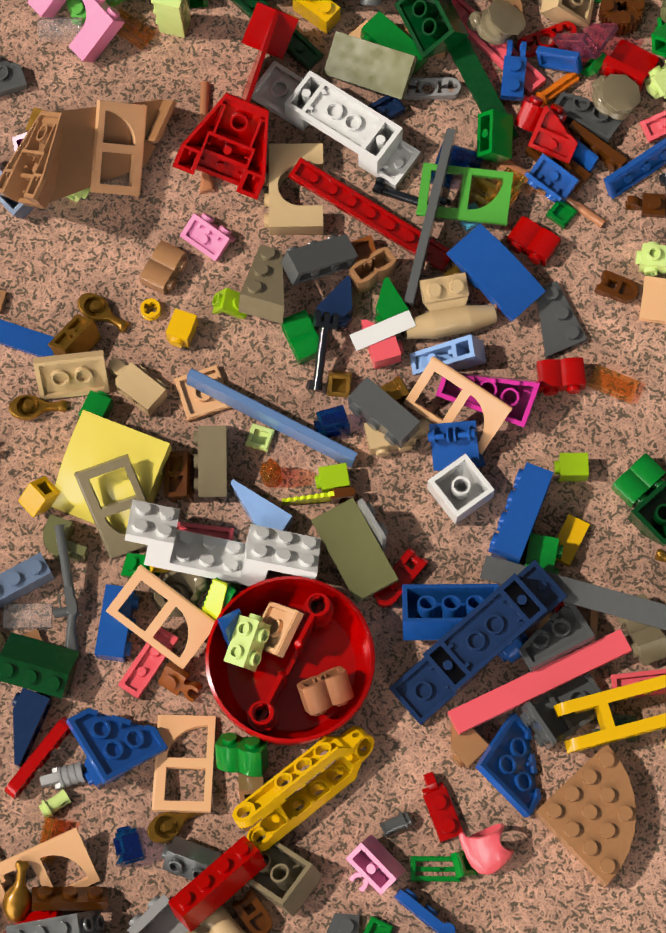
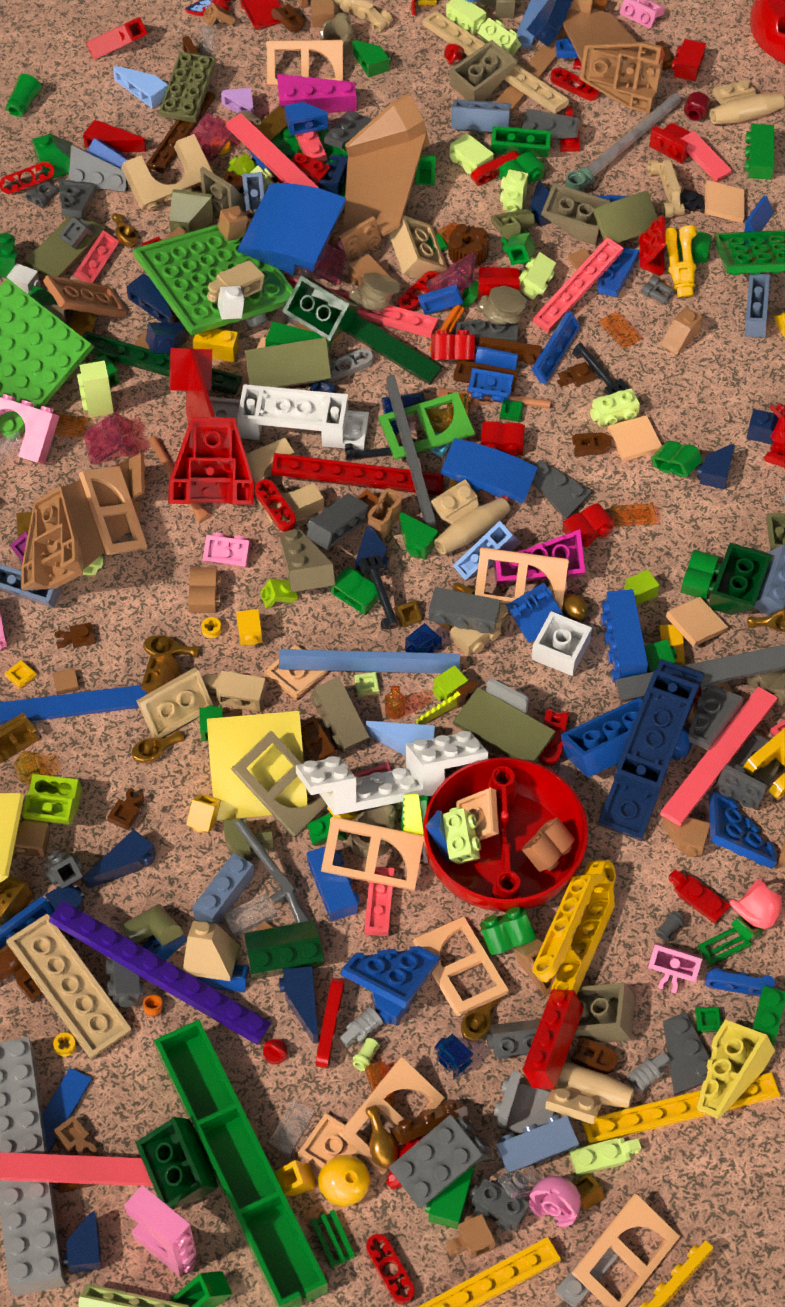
camera: 30 degrees left, 15 degrees down
(29, 260) = (79, 635): none -> reddish brown plate
(165, 64) = (110, 436): none -> clear pink bracket
(176, 681) = (411, 903): dark orange plate -> none
(278, 221) = (275, 496): none -> red beam
(382, 330) = (422, 552): white sticker -> none
(385, 351) = (425, 567): coral slope -> none
(494, 136) = (425, 372): green brick -> none
(496, 455) = (573, 606): none -> pearl gold piece
(513, 73) = (410, 323): blue hinge -> none
(553, 137) = (473, 353): red wing -> none
(605, 528) = (696, 621): none -> light nougat tile

